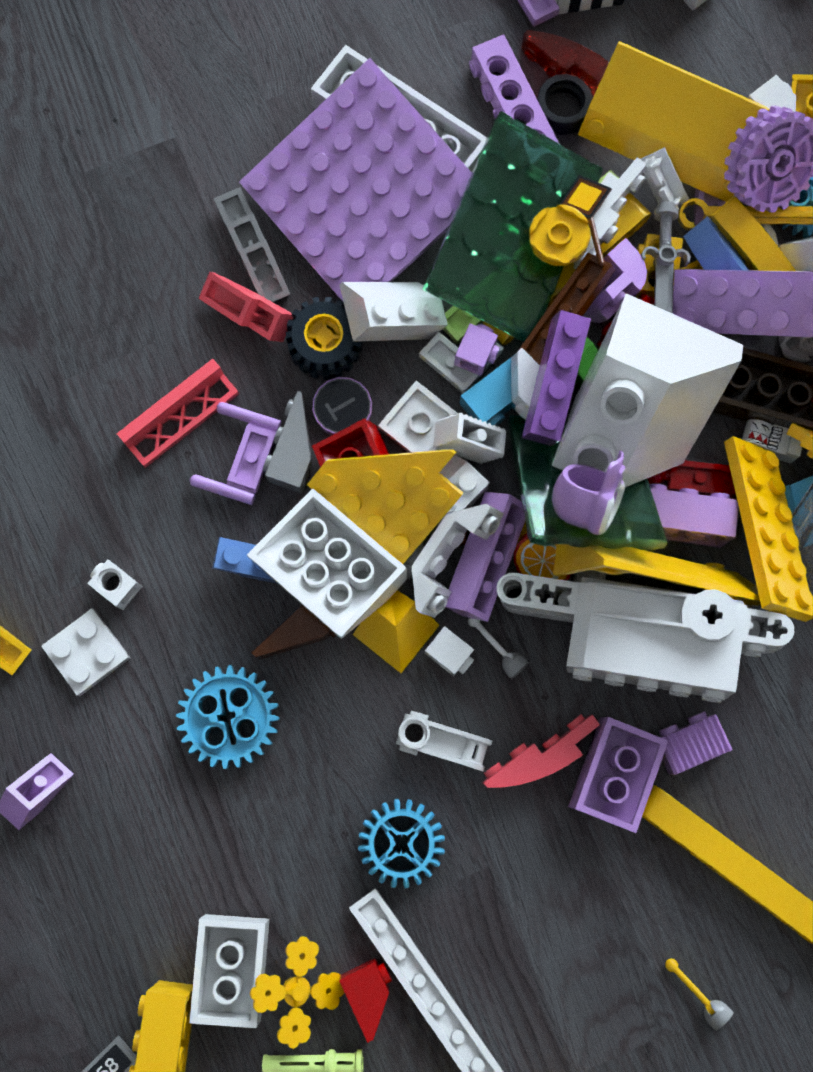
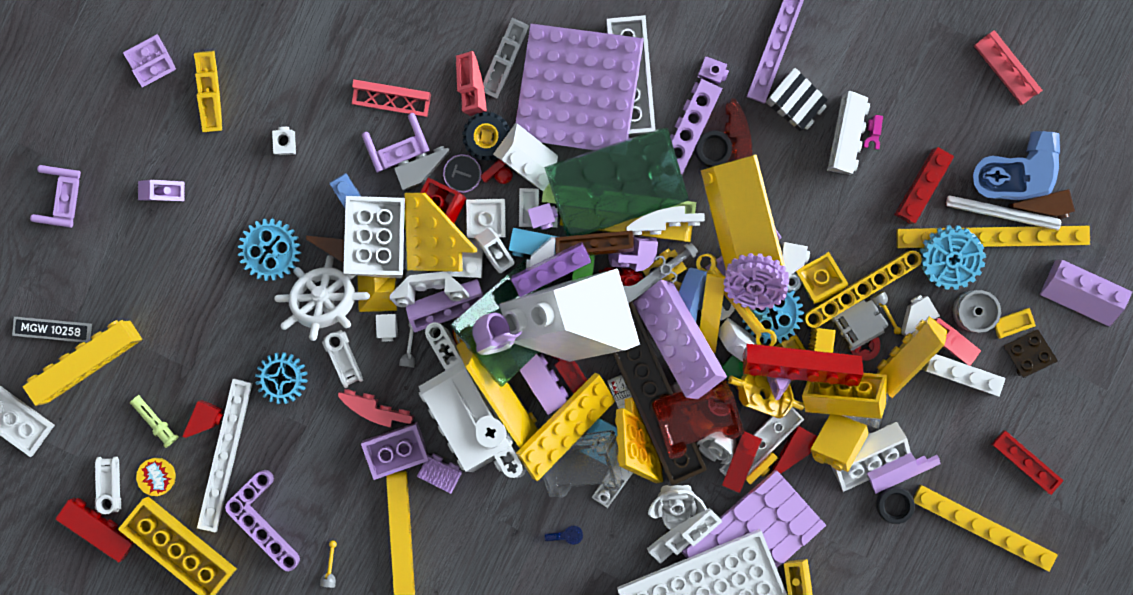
camera: 50 degrees right, 10 degrees up
(85, 652) = (242, 156): white plate -> none
(227, 962) = (160, 349): white brick -> none
(296, 992) = (176, 386): yellow plant -> none
(346, 698) = (321, 298): none -> white piece
(379, 358) = (499, 171): none -> red tile
(470, 32) = (713, 71): none -> lavender brick
(559, 235) = (629, 209): yellow tile -> none
(567, 1039) = (259, 523): none -> lavender beam
(587, 198) = (659, 206): piece -> none
(664, 178) = (711, 232): white hinge -> none

